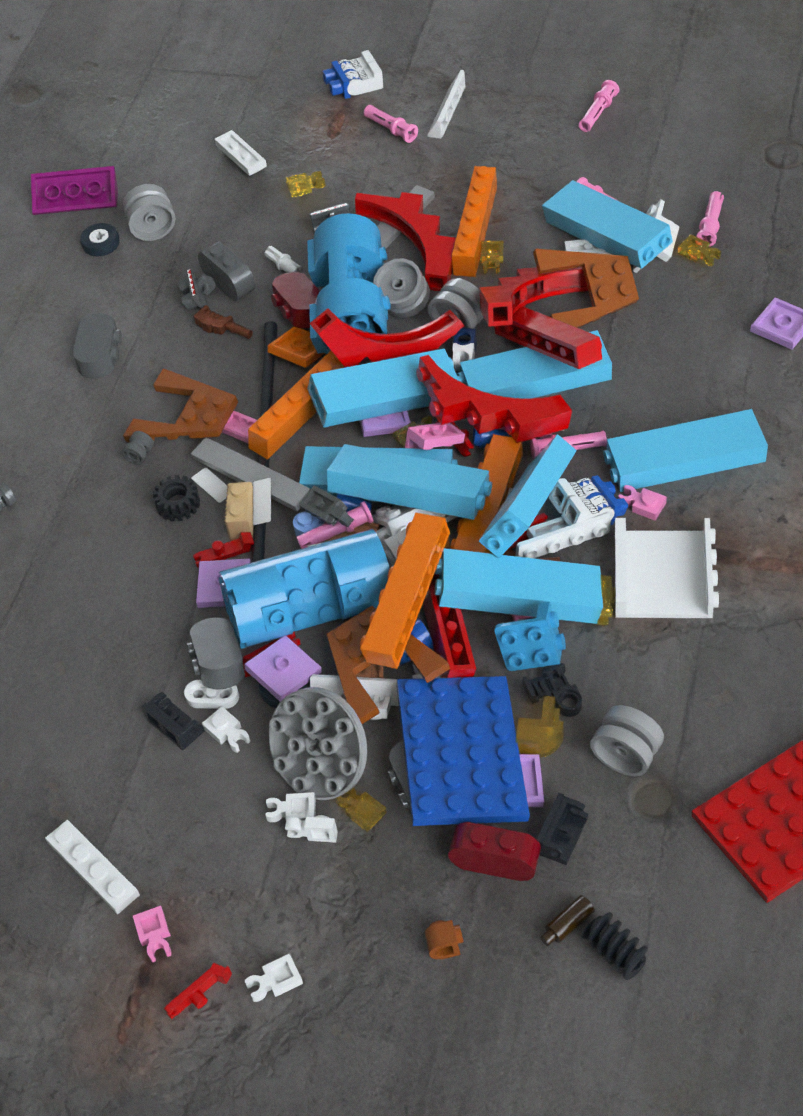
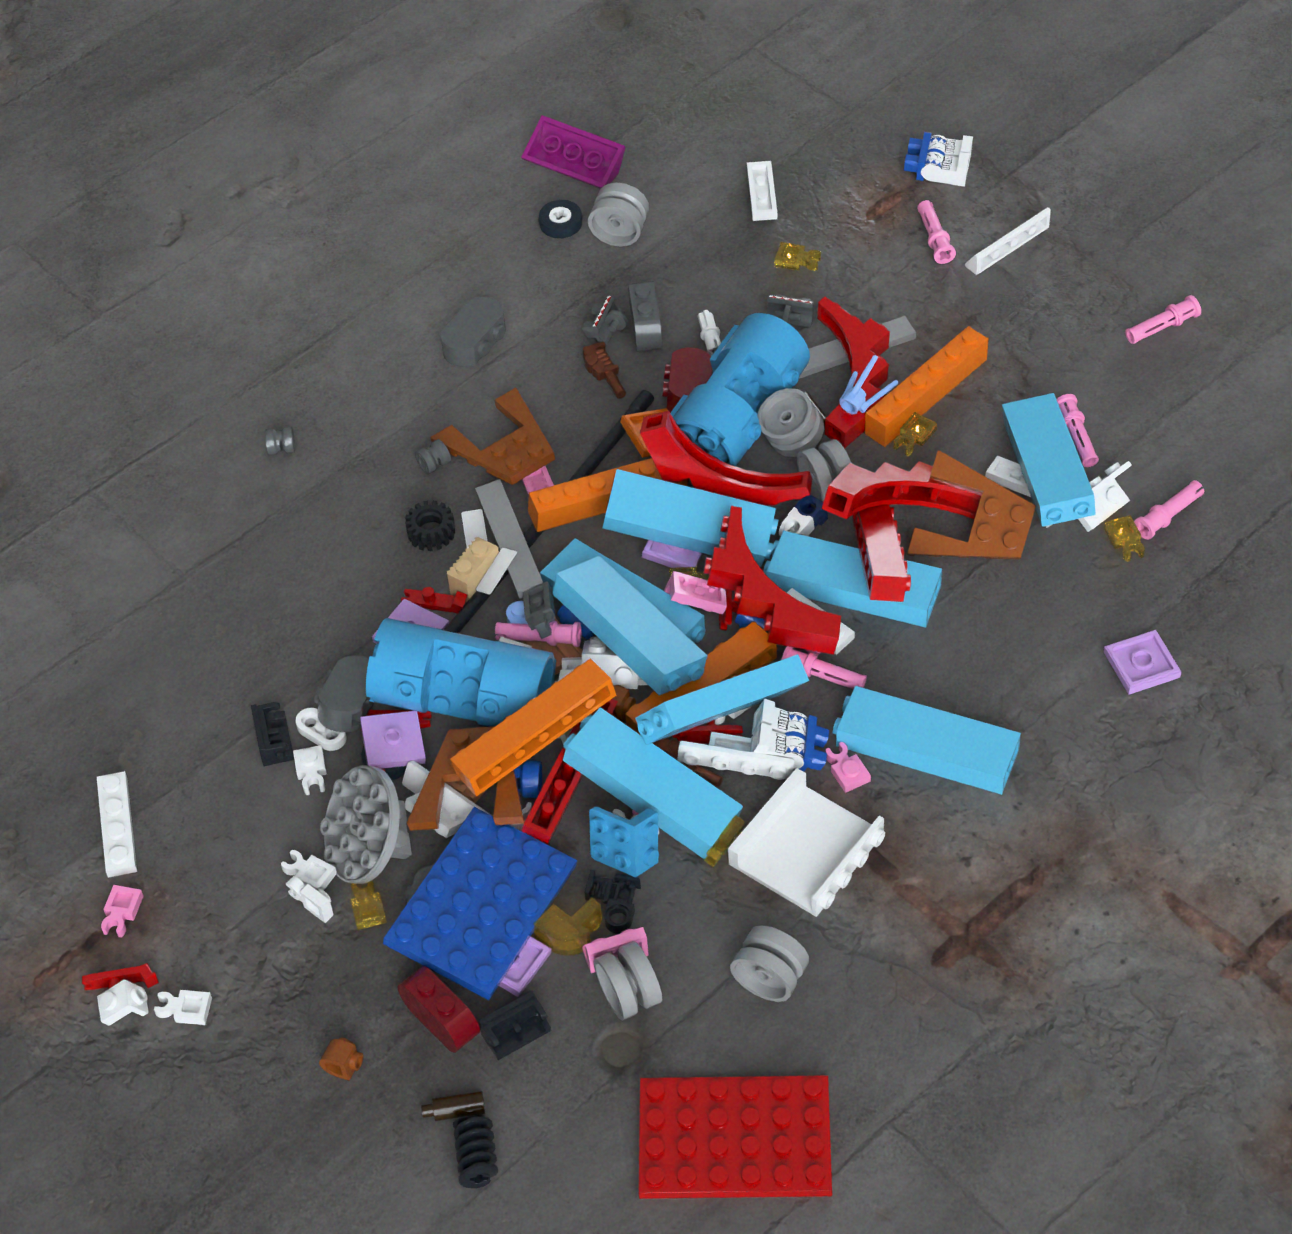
camera: 30 degrees right, 0 degrees up
(215, 1008) = (122, 1000): none -> white bracket
(438, 249) = (854, 397): none -> light blue plant
(583, 729) = (611, 944): none -> bright pink bracket
(721, 666) = (769, 963): none -> light grey wheel

